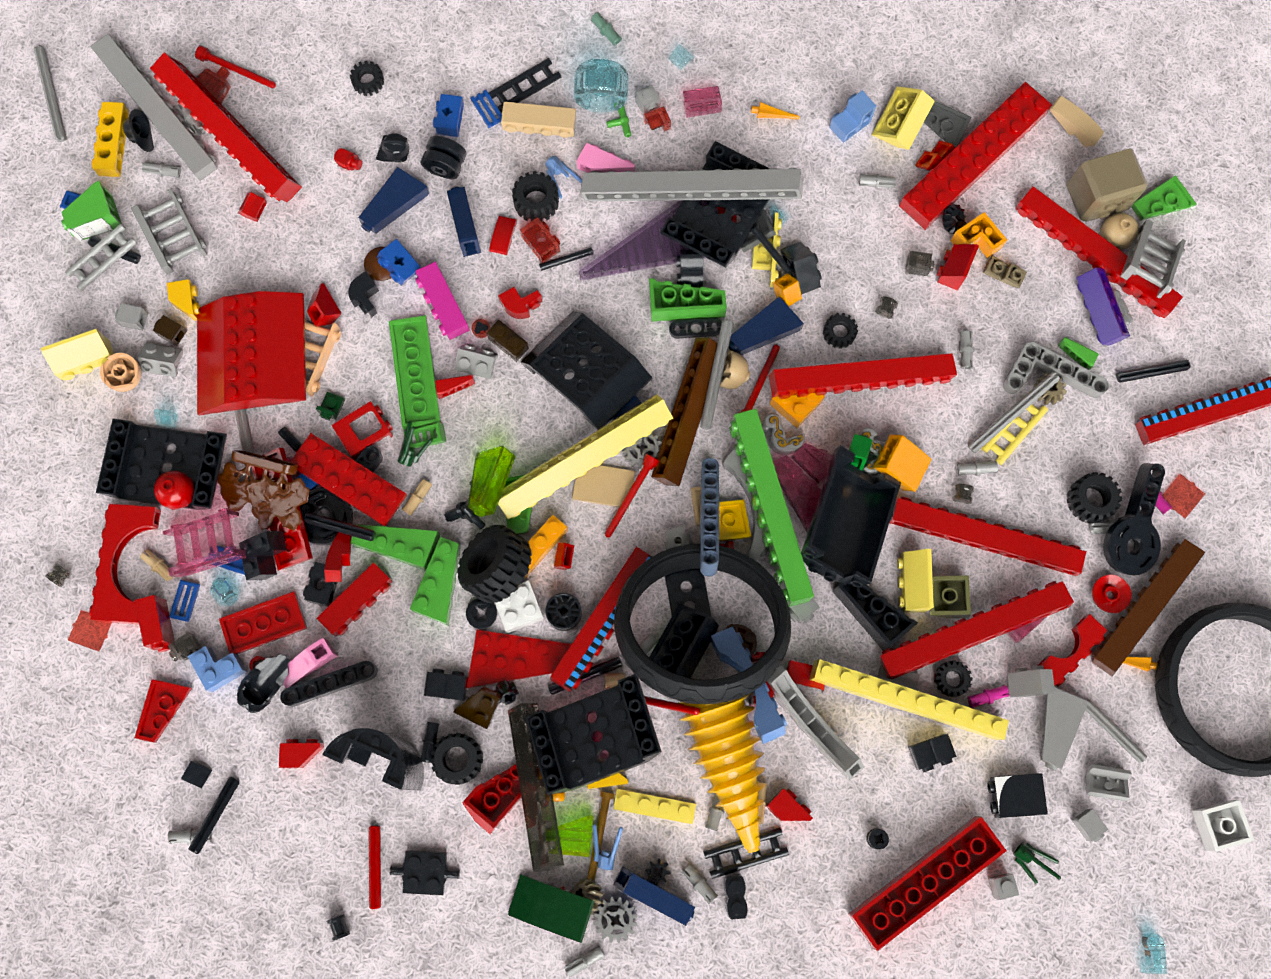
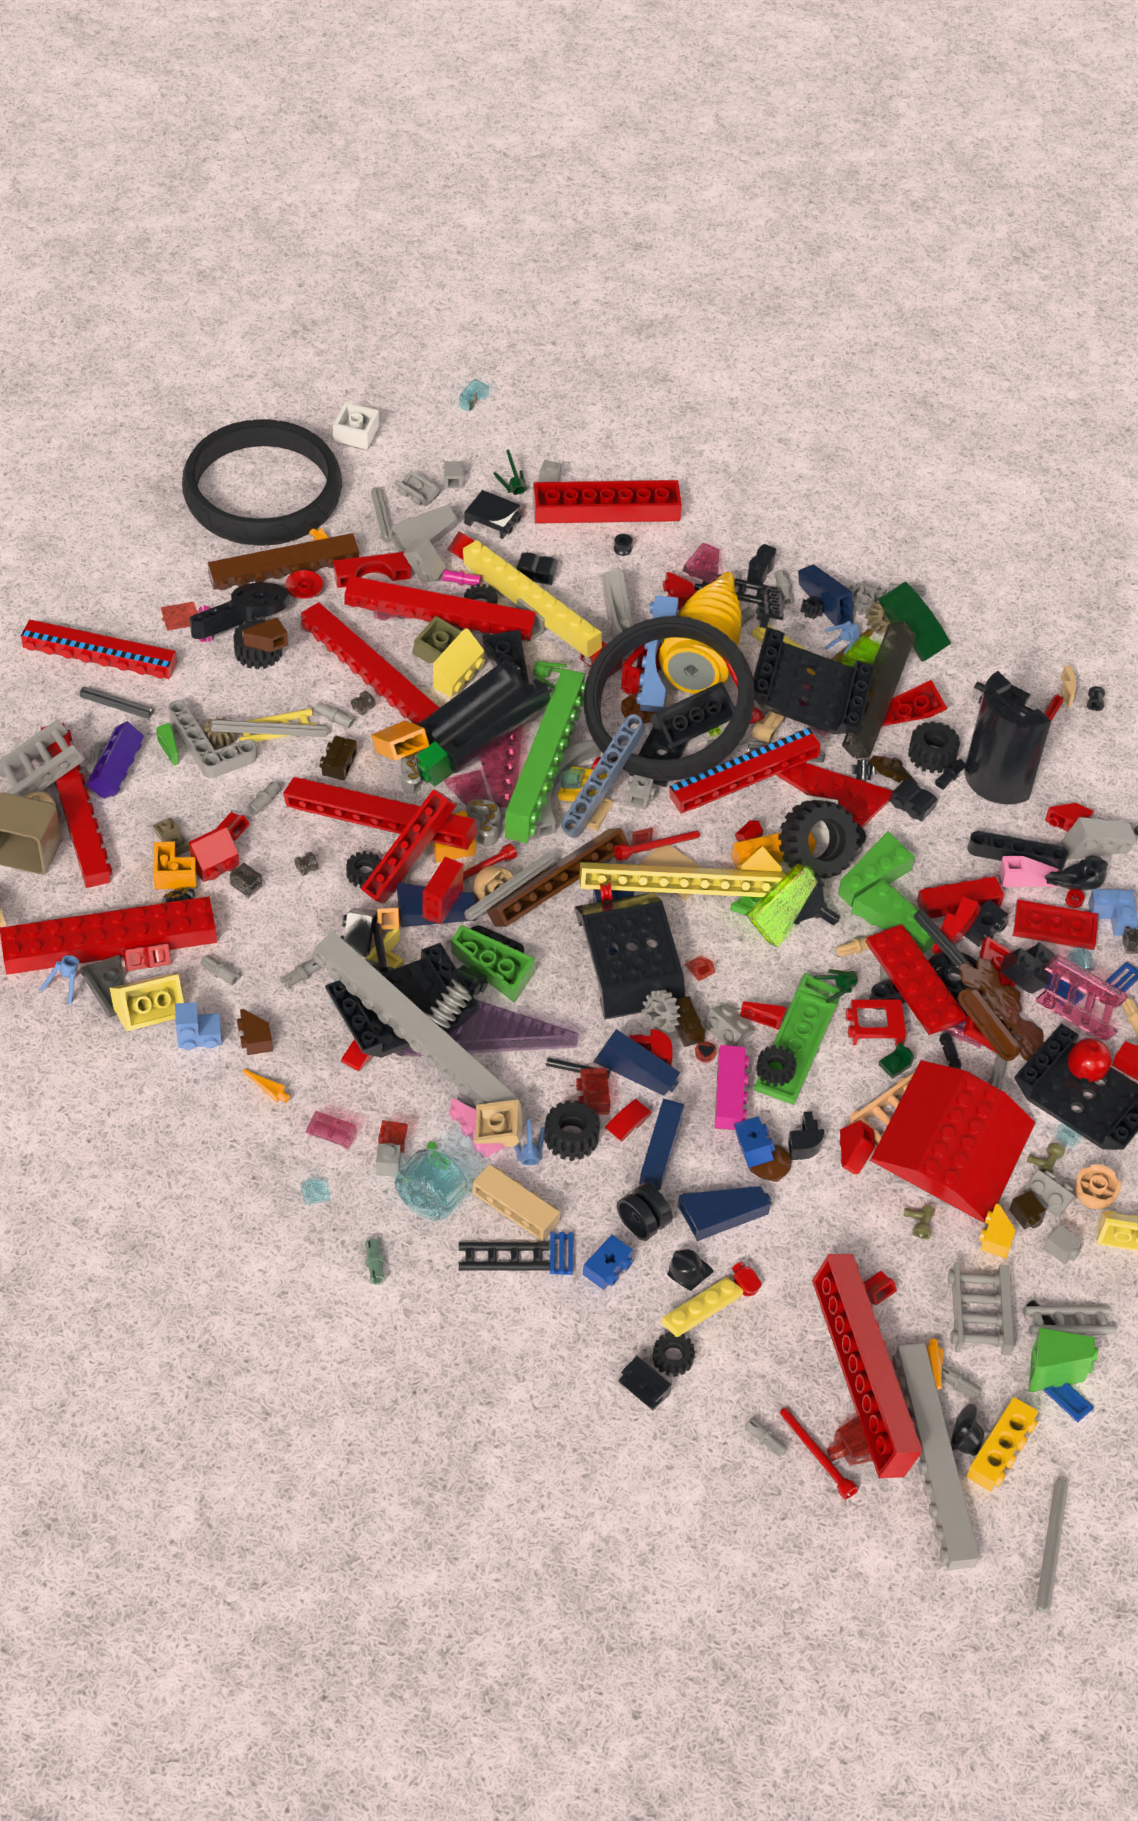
camera: 150 degrees left, 25 degrees down
(173, 382) = (1054, 1151): none -> olive piece
(186, 175) = (935, 1356): none -> light orange piece
(242, 271) = (923, 1215): none -> olive piece
(261, 740) = (1098, 838): none -> light grey wedge
(273, 57) = (766, 1437): none -> light grey axle
(365, 118) = (702, 1306): none -> light yellow plate
(366, 920) = (1069, 685): none -> tan slope
(373, 49) = (645, 1383): none -> black hinge
(417, 323) = (772, 1075): none -> black tyre
(524, 277) = (637, 1064): none -> dark blue slope
(528, 327) = (661, 1012): none -> light grey gear
(529, 403) = (700, 967): none -> clear red slope
(533, 516) = (759, 861): none -> yellow slope
(556, 605) = (776, 795): black wheel -> none
(584, 155) = (499, 1123): none -> tan slope
(633, 398) = (605, 891): none -> red bush
(648, 499) = (642, 836): none -> clear red slope
(678, 208) = (450, 1004): none -> light grey piece
(691, 834) = (770, 606): none -> black bracket
(741, 519) = (572, 778): none -> clear light blue slope
(758, 319) = (443, 890): none -> red brick
(787, 857) = (703, 563): none -> clear pink wing
(811, 142) = (256, 1033): none -> reddish brown slope
(811, 341) = (408, 846): none -> red brick
(818, 213) = (300, 973): none -> light grey pin
(843, 630) = (544, 669): none -> bright green plant
(939, 423) = (338, 757): none -> dark brown brick
(967, 308) = (235, 824): none -> red piece
(975, 98) = (68, 969): none -> medium blue plant
(1017, 737) = (458, 543): none -> red panel
(1086, 490) = (266, 636): none -> reddish brown slope

